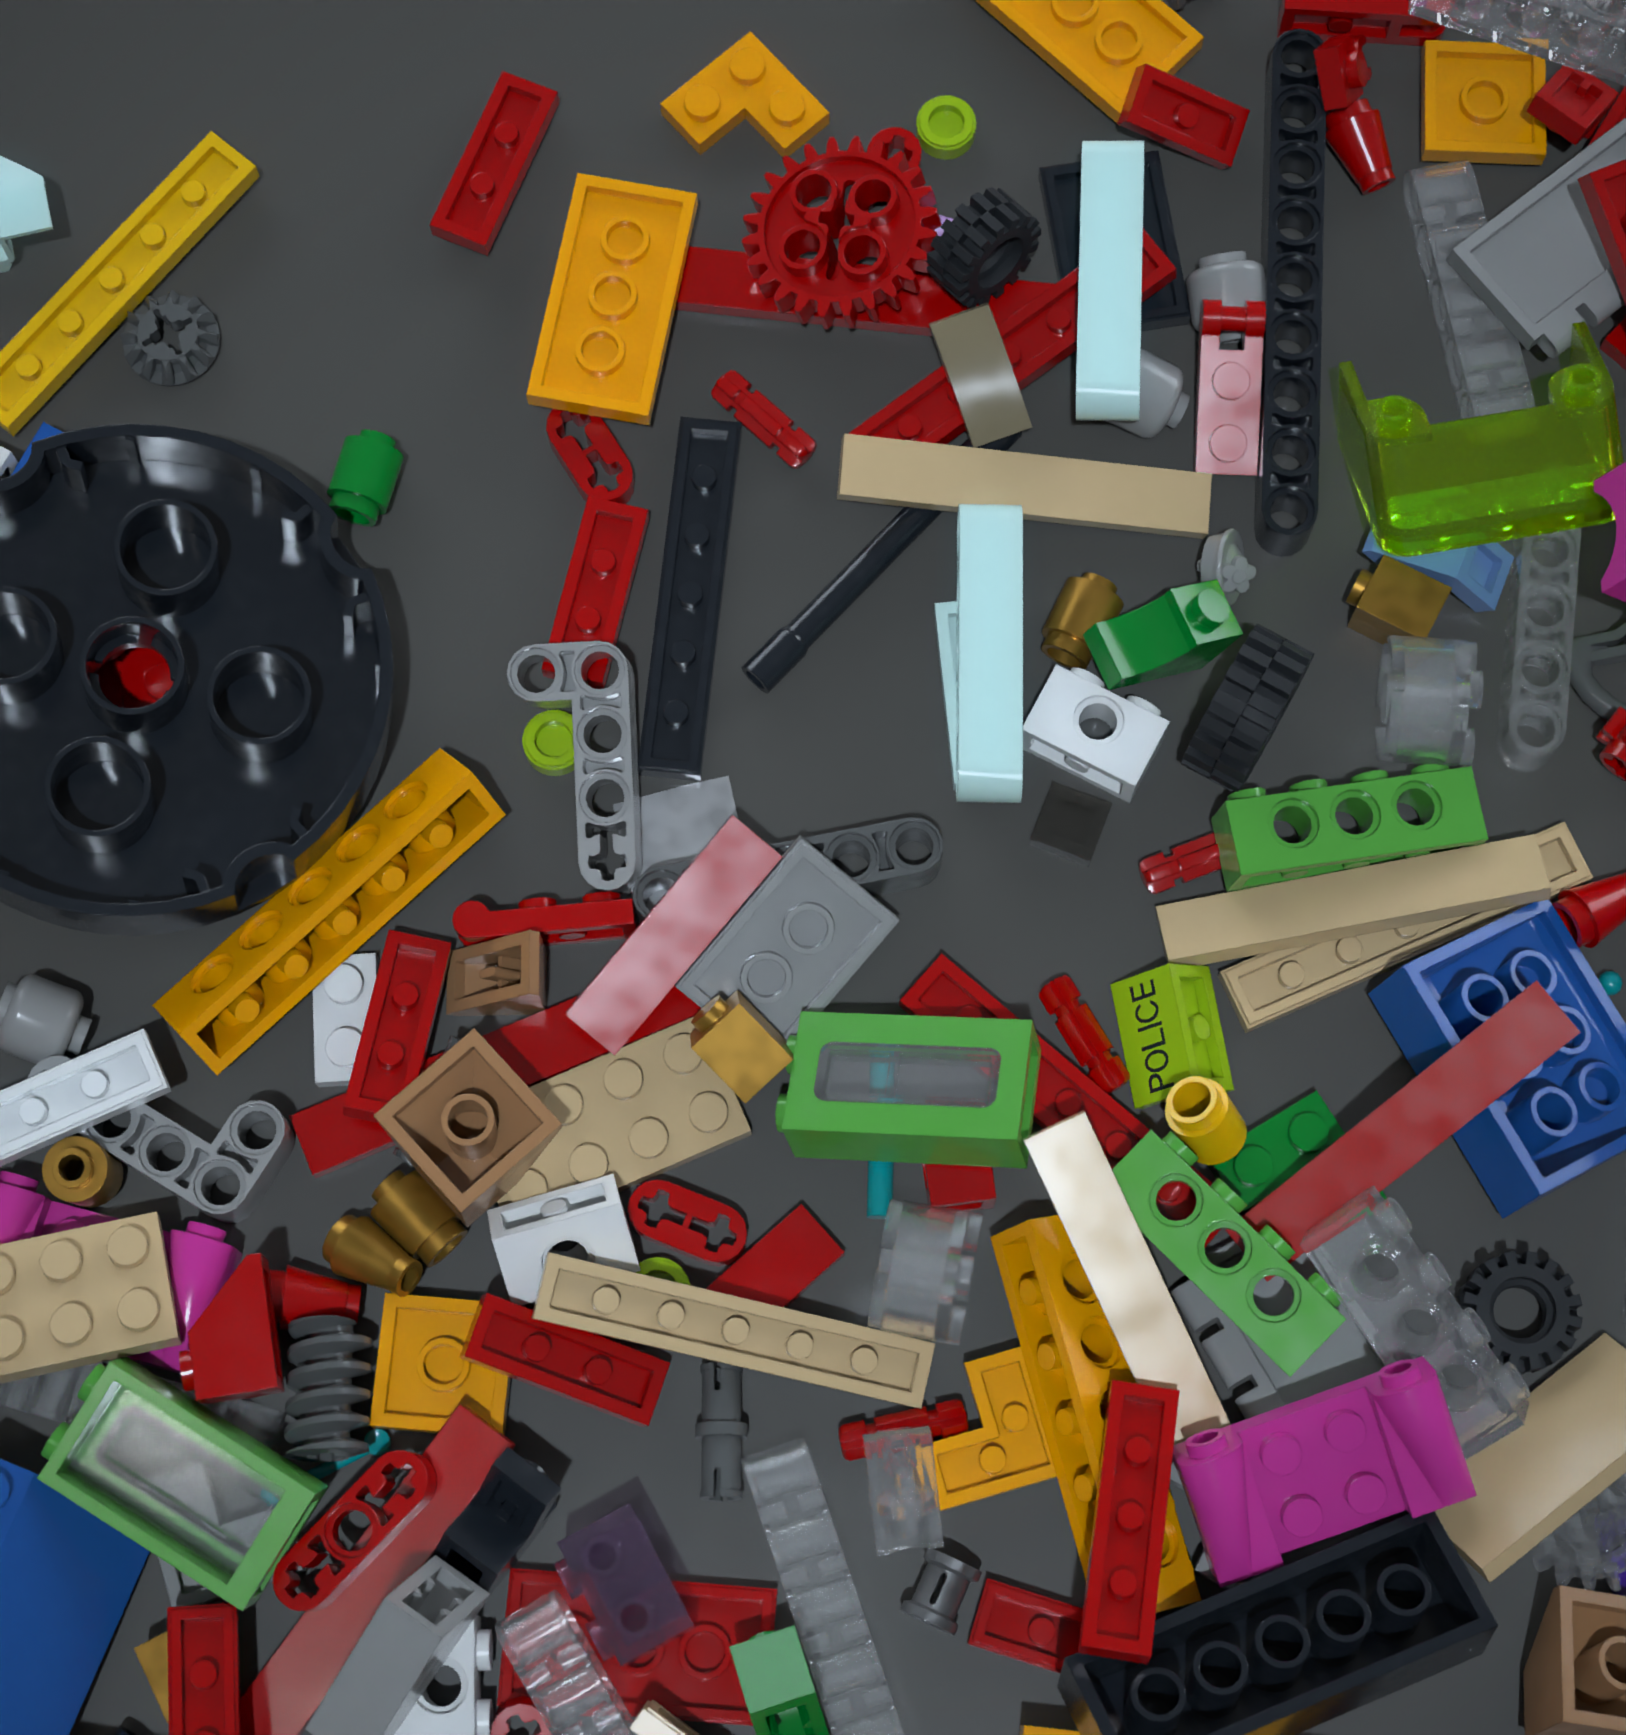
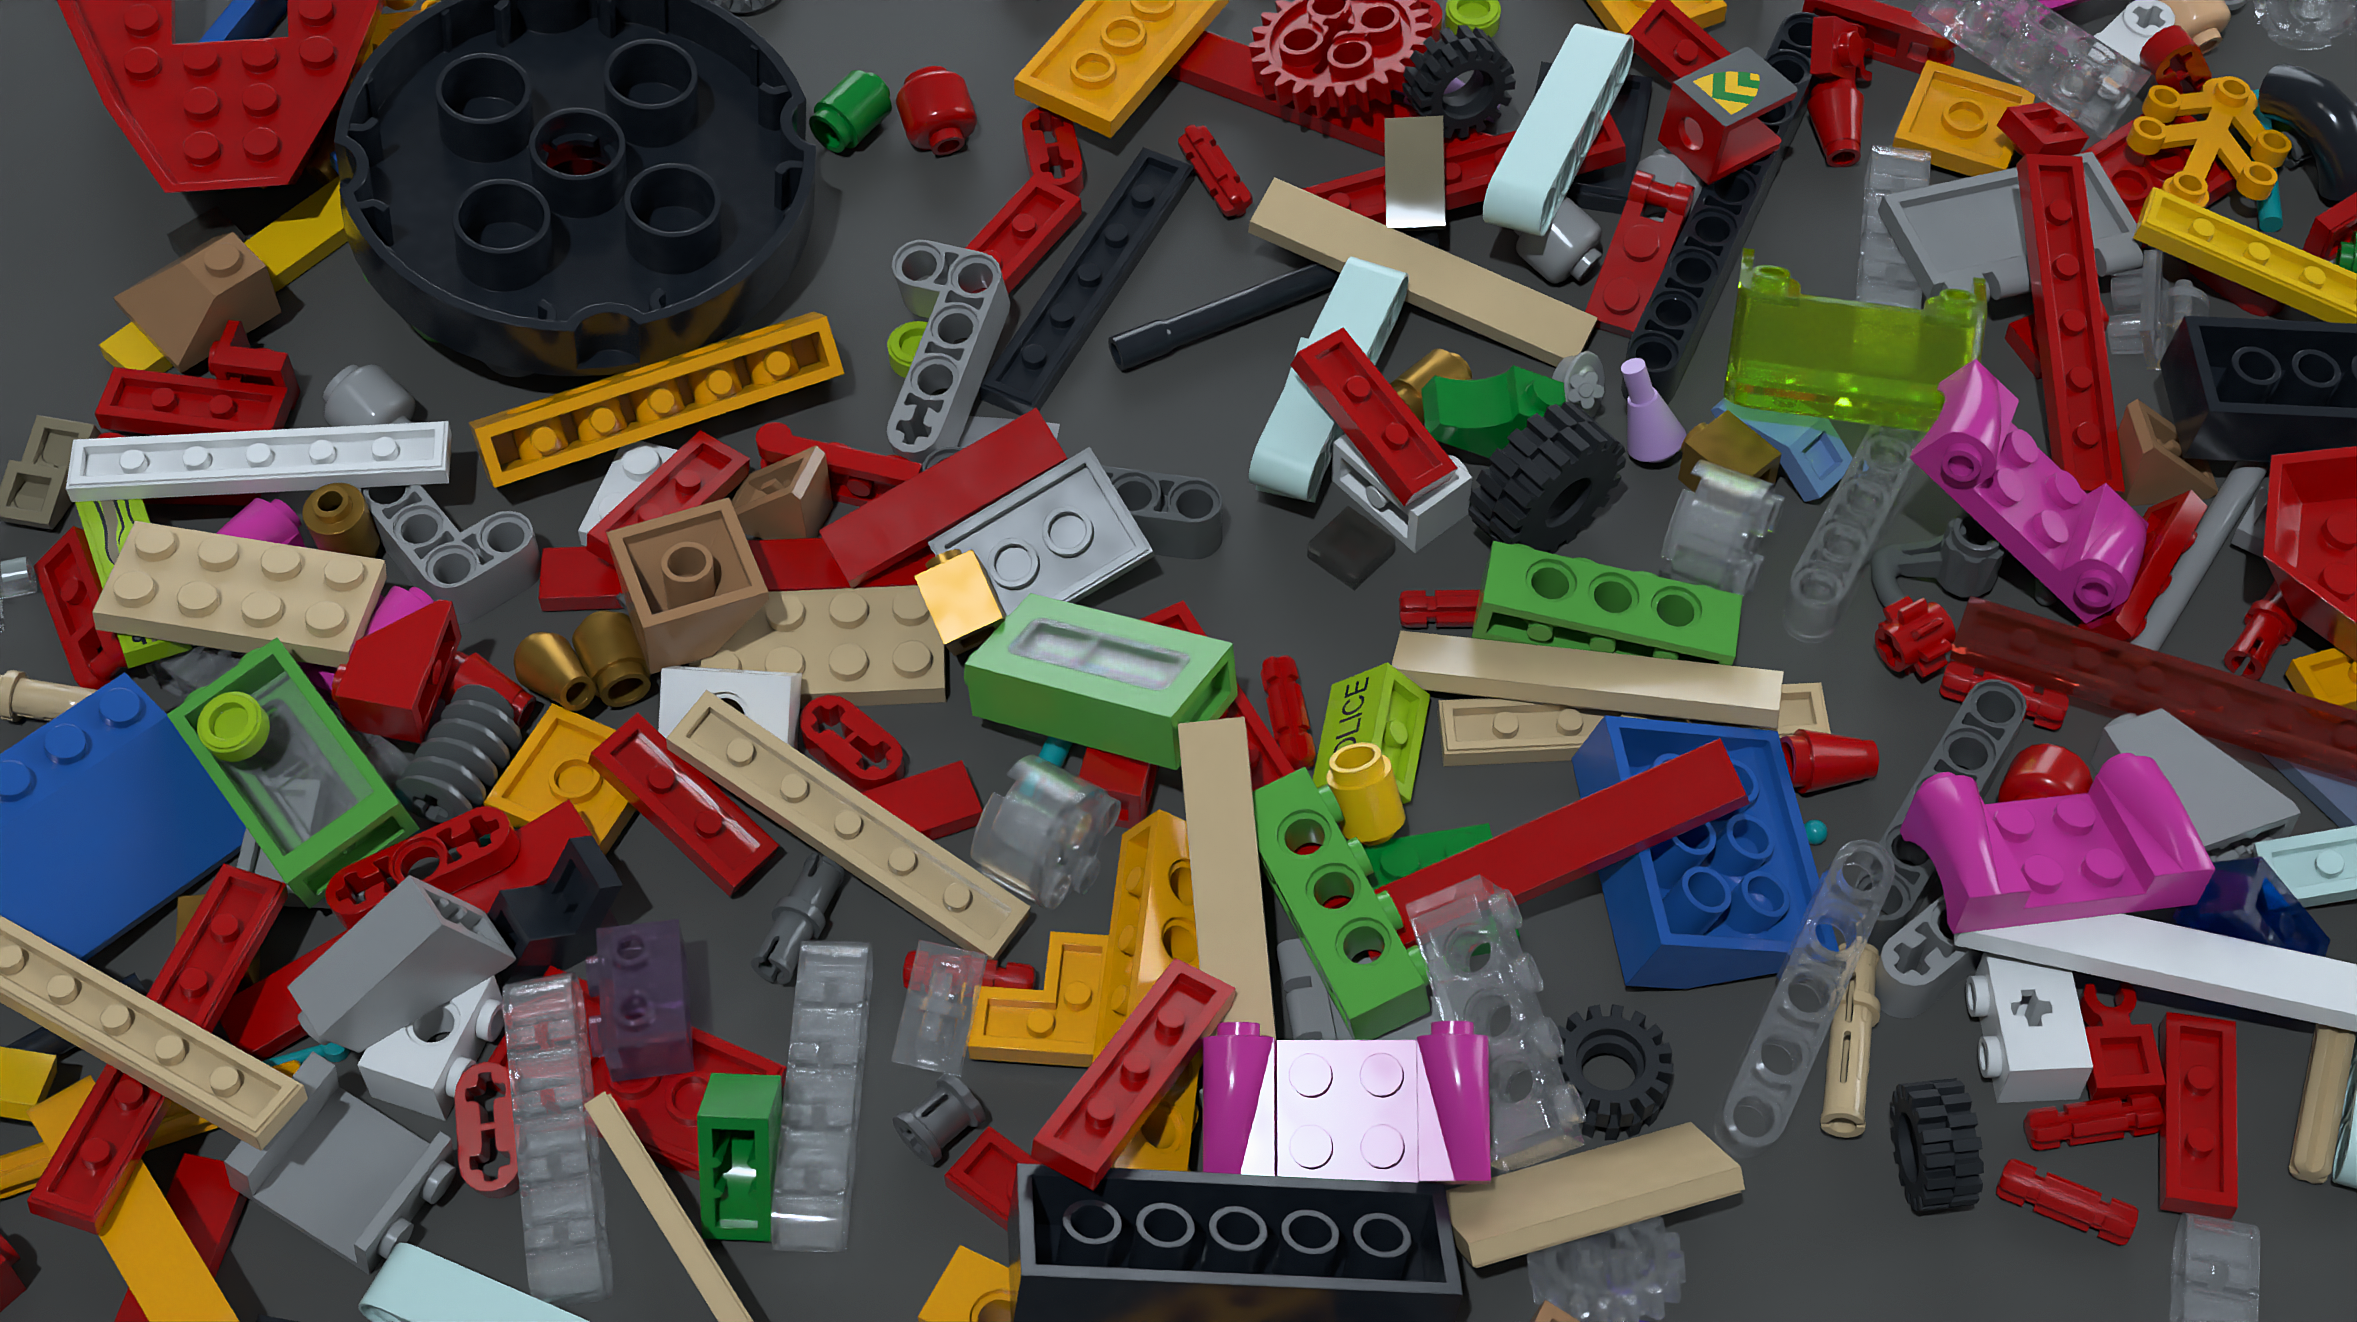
camera: 20 degrees right, 20 degrees down
(112, 1471) = (233, 726): none -> lime tile
(453, 448) = (936, 110): none -> red head
(1062, 703) = (1373, 416): none -> red plate
(1273, 210) = (1723, 114): none -> piece
(1312, 591) = (1651, 426): none -> lavender cone

